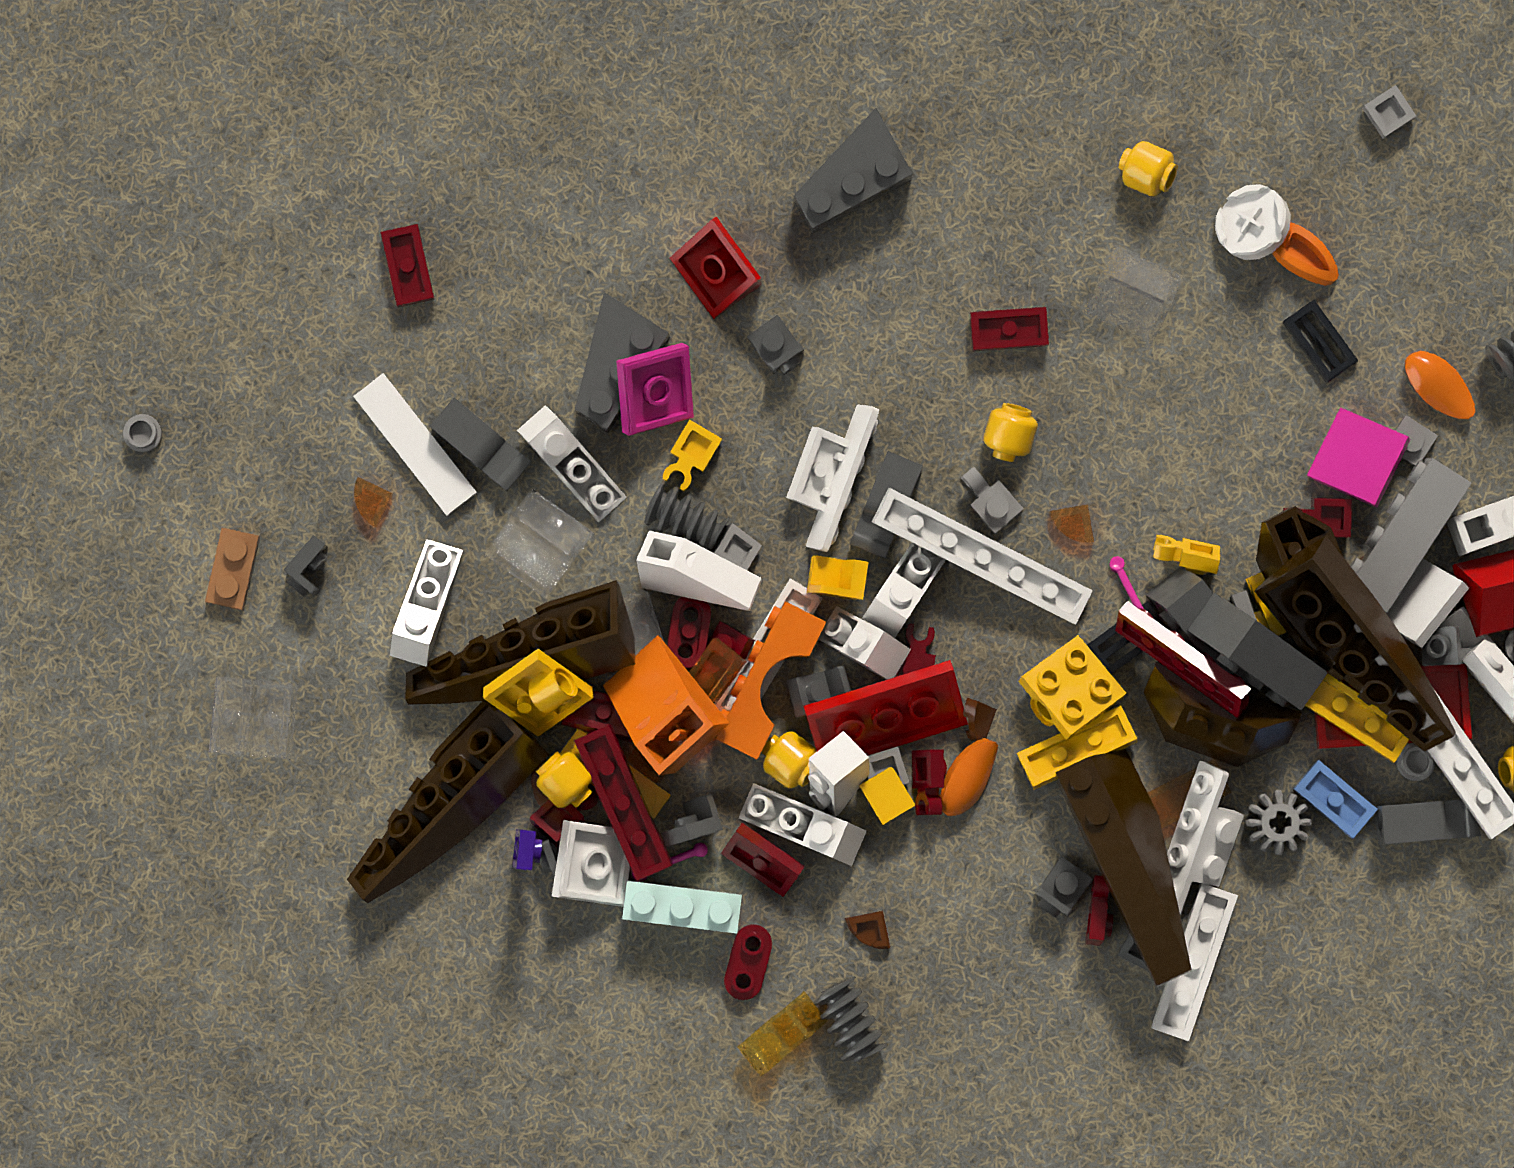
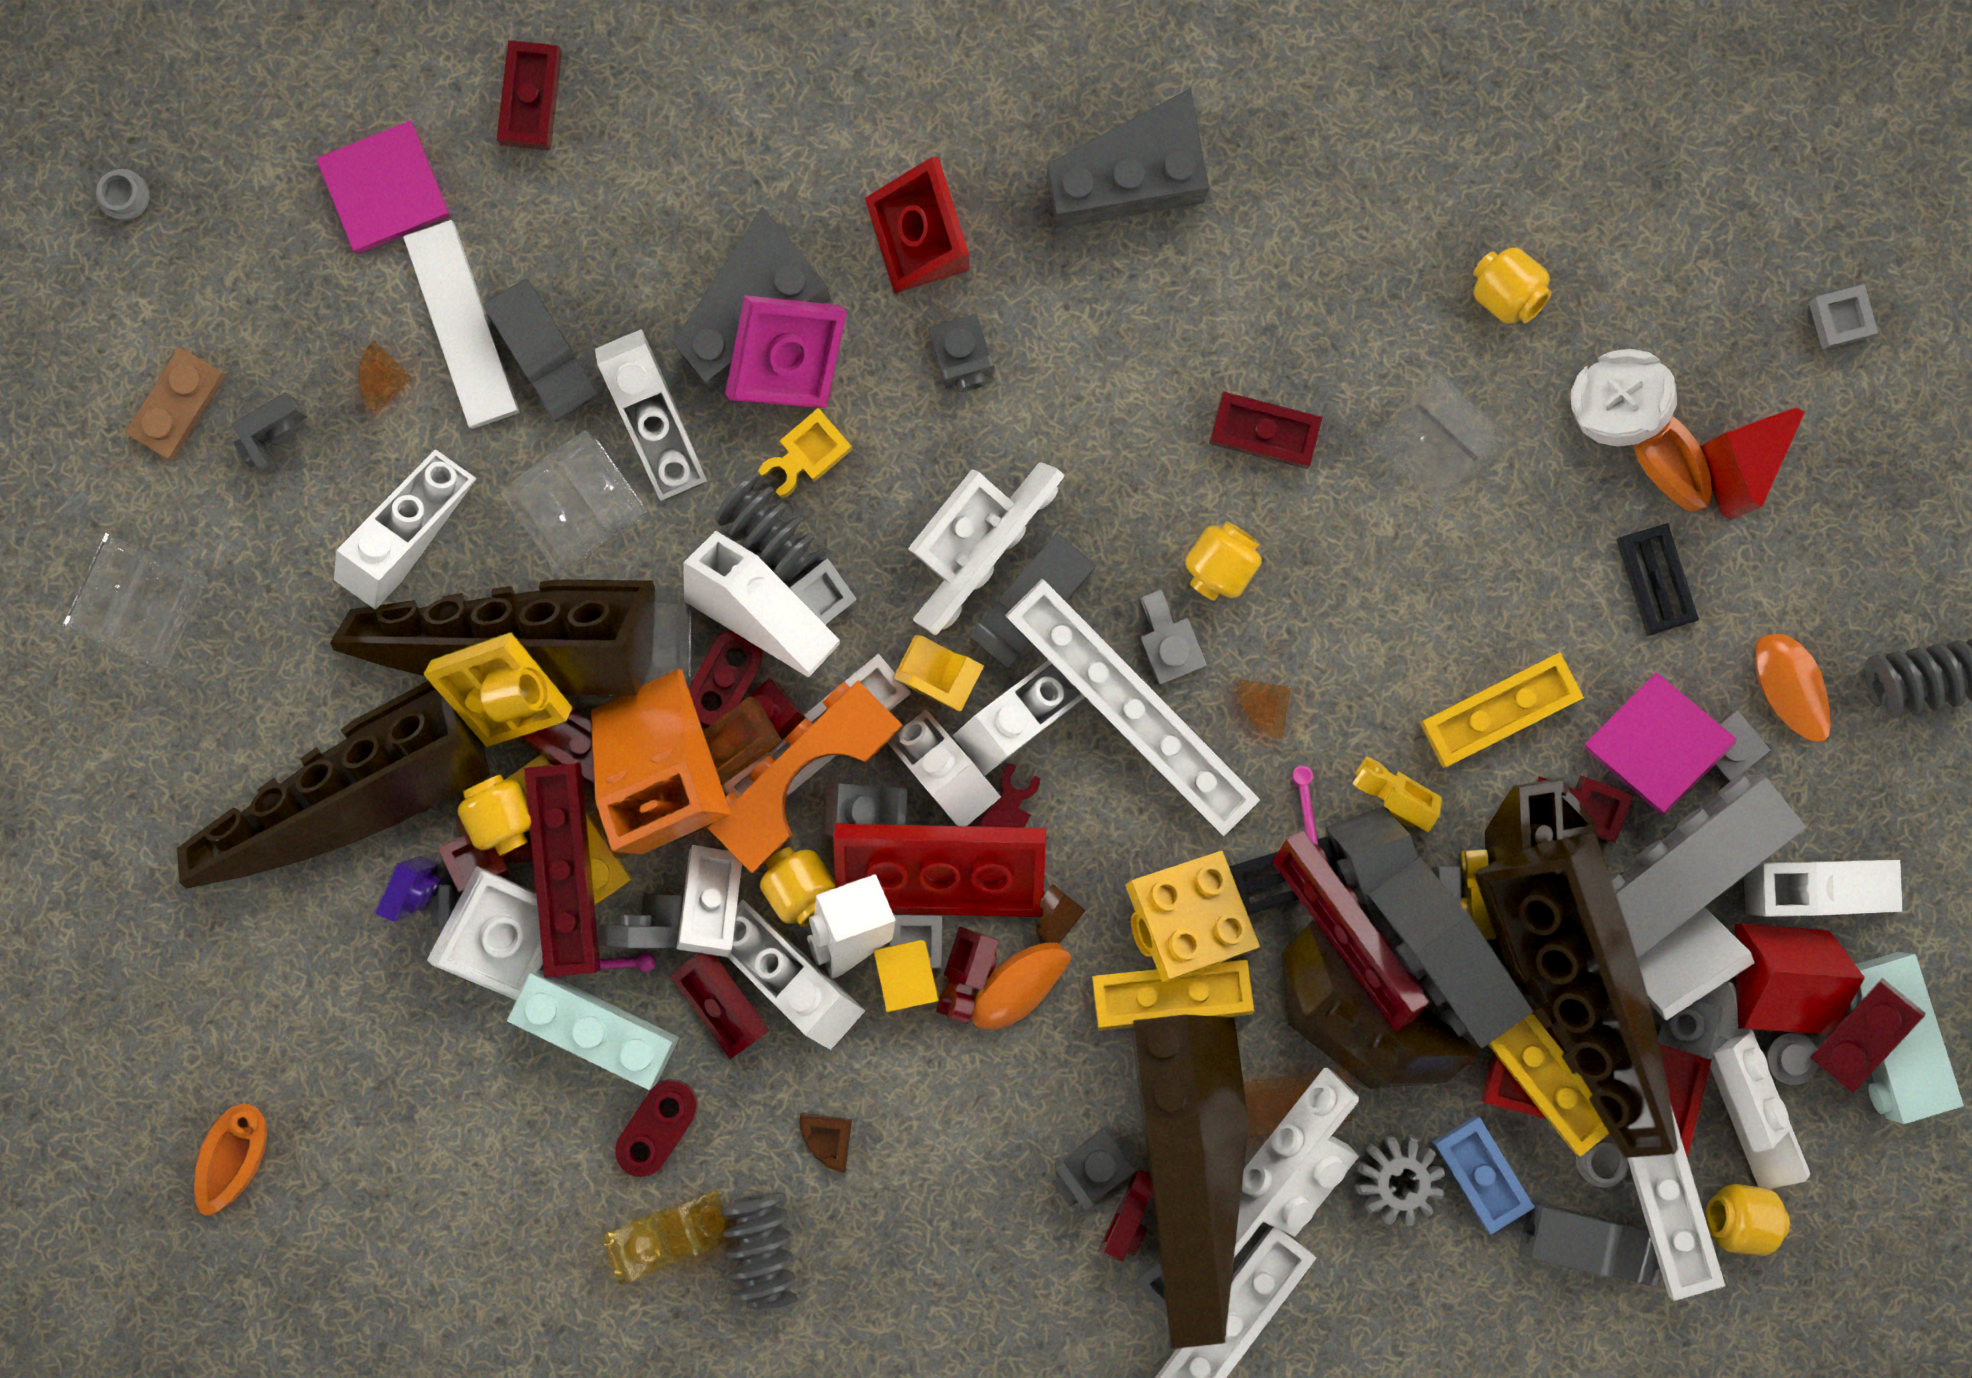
camera: 15 degrees right, 0 degrees up
(325, 365) = (383, 187): none -> dark pink tile
(456, 1083) = (229, 1157): none -> orange arm
(732, 790) = (709, 901): none -> white plate
(1240, 470) = (1501, 710): none -> yellow plate
(1351, 239) = (1748, 460): none -> red slope

